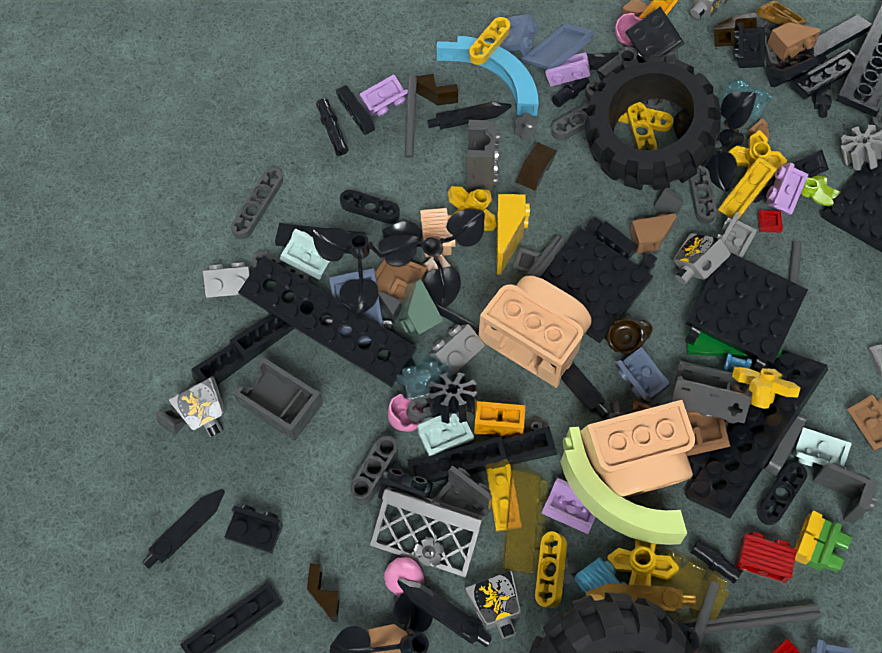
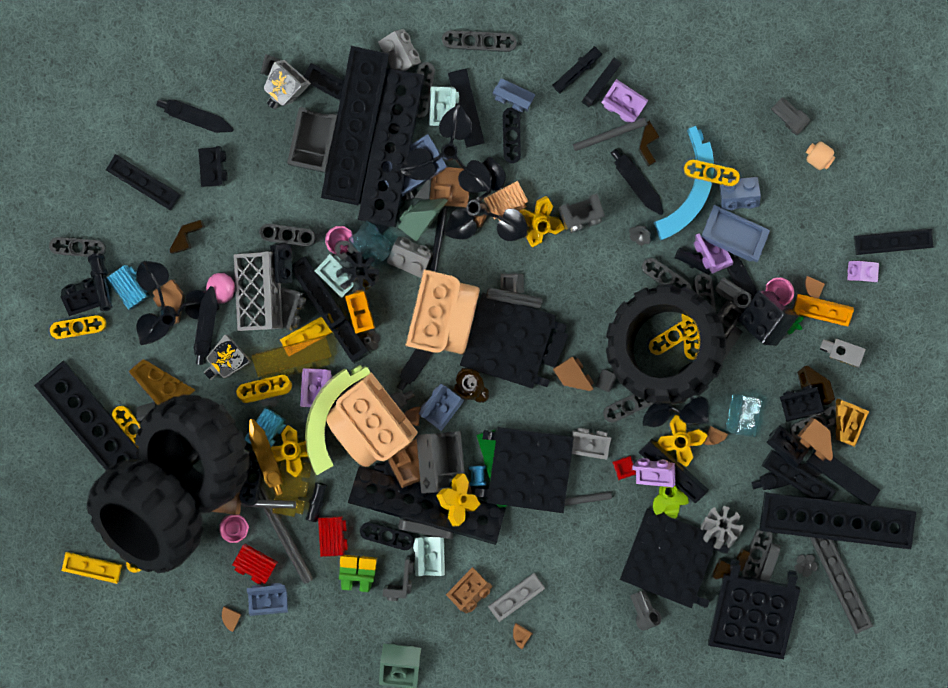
camera: 65 degrees right, 25 degrees up
(284, 345) = (354, 125): none -> black plate
(330, 188) = (514, 95): none -> sand blue bracket
(429, 552) = (242, 299): plant -> none
(511, 222) = (529, 259): yellow slope -> none
(536, 165) = (602, 259): dark brown slope -> none
(699, 257) = (558, 419): light grey torso -> none
(748, 188) = (641, 441): yellow tile -> none

